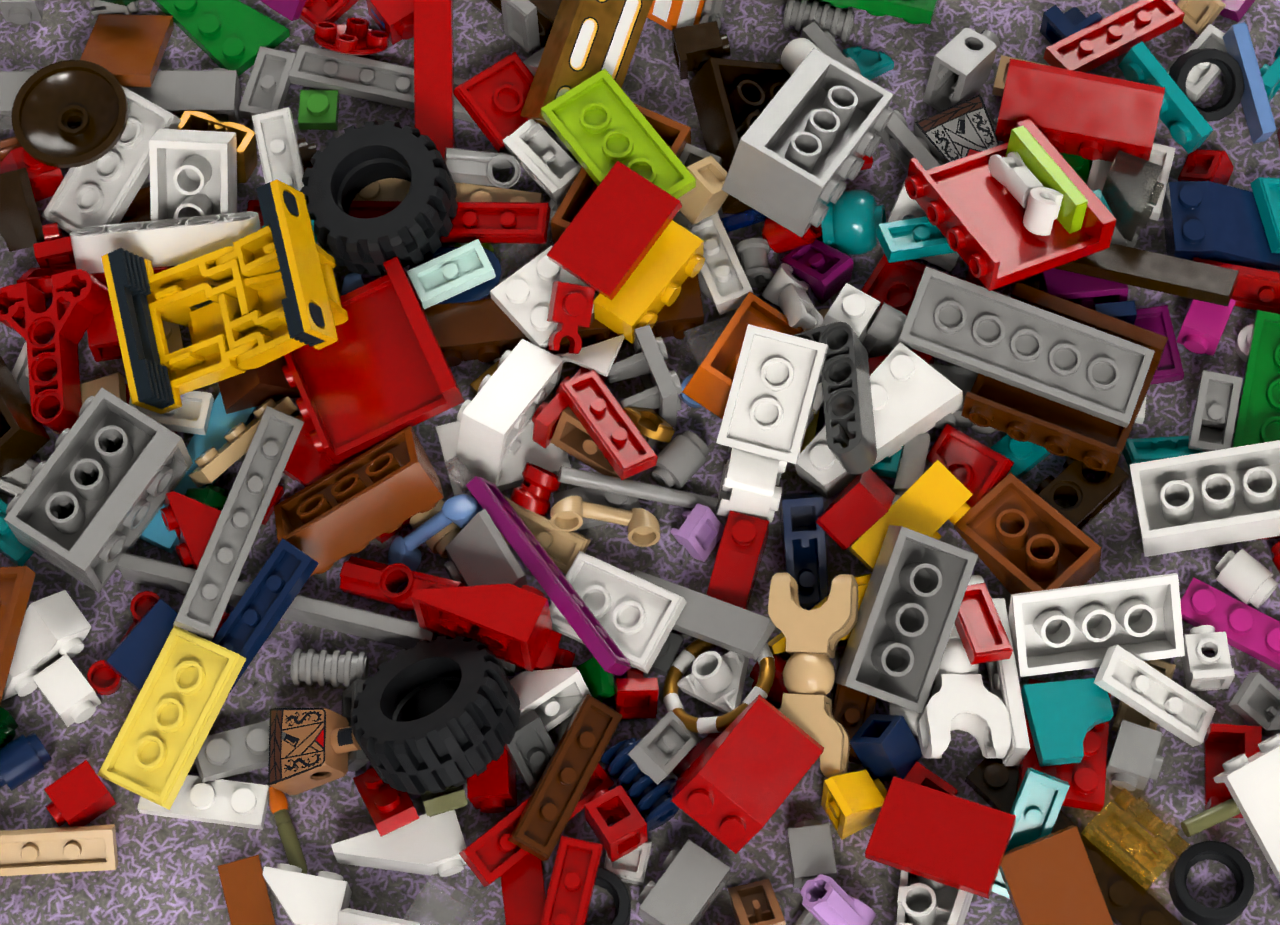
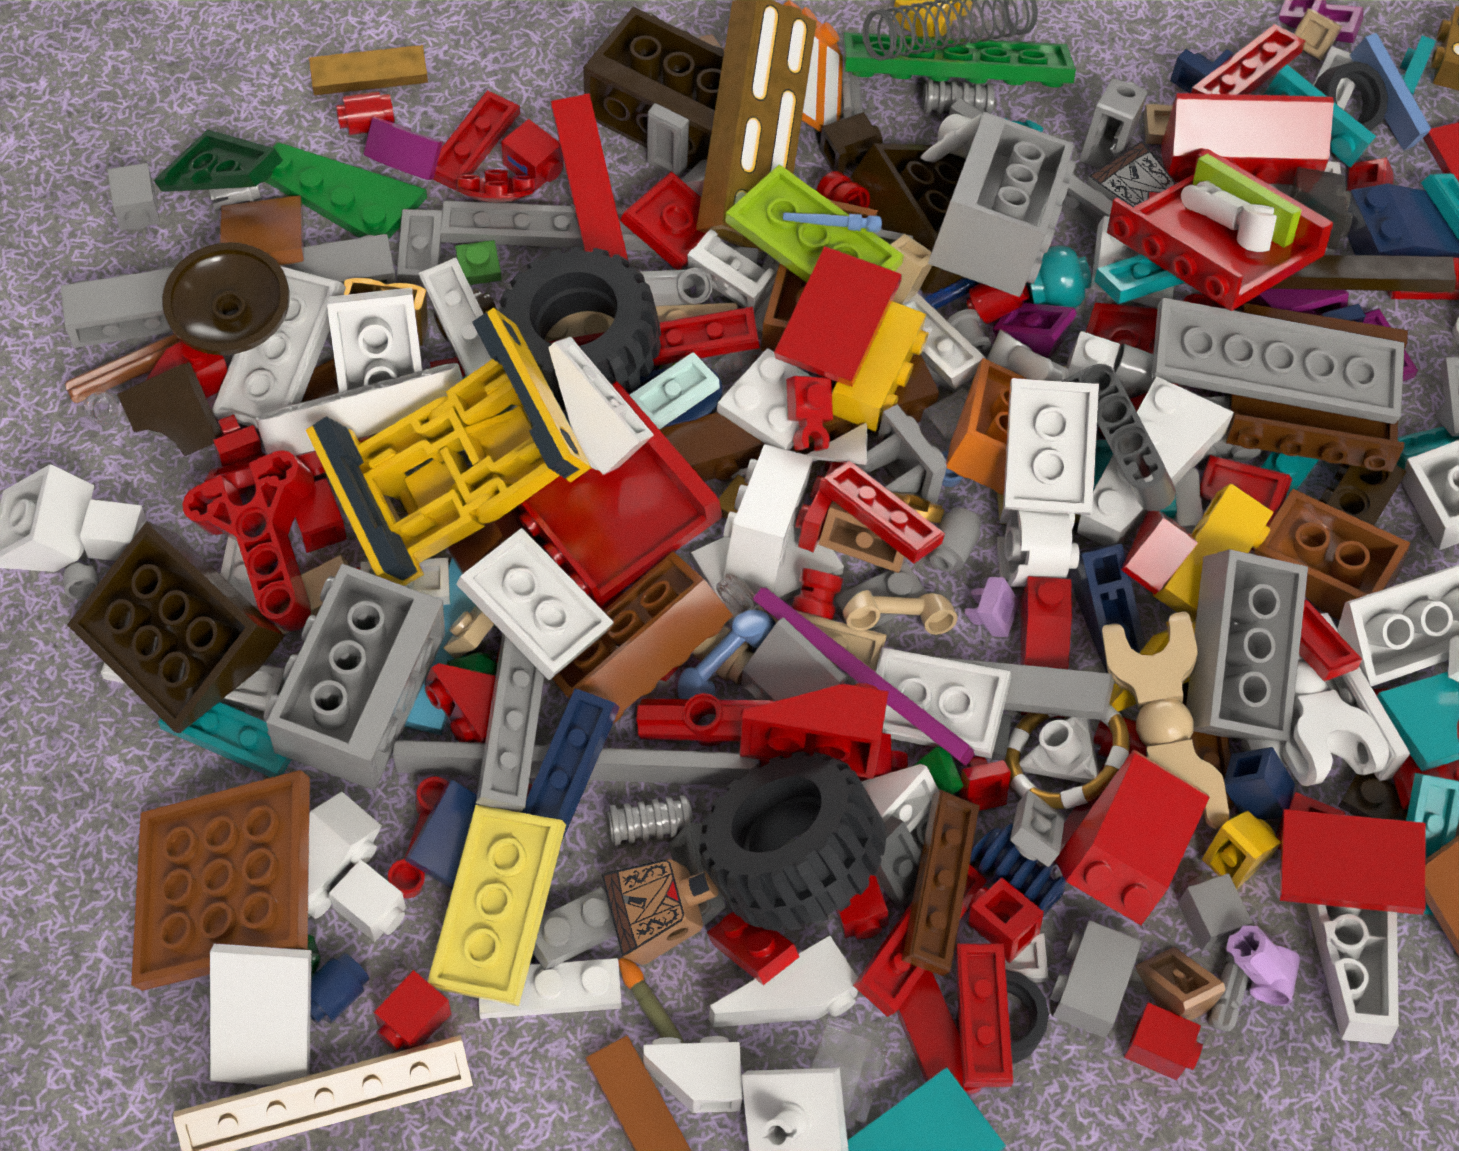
camera: 20 degrees left, 5 degrees down
(267, 453) = (534, 603): none -> white plate
(364, 283) = (596, 411): none -> white slope
(444, 801) = (820, 935): olive tile -> none
(635, 489) = (917, 574): light grey bar -> none
(654, 139) = (853, 221): none -> medium blue piece
(674, 101) = (840, 188): none -> red wheel
(784, 68) = (952, 141): none -> white piece
(1204, 326) = (1426, 317): dark pink brick -> none

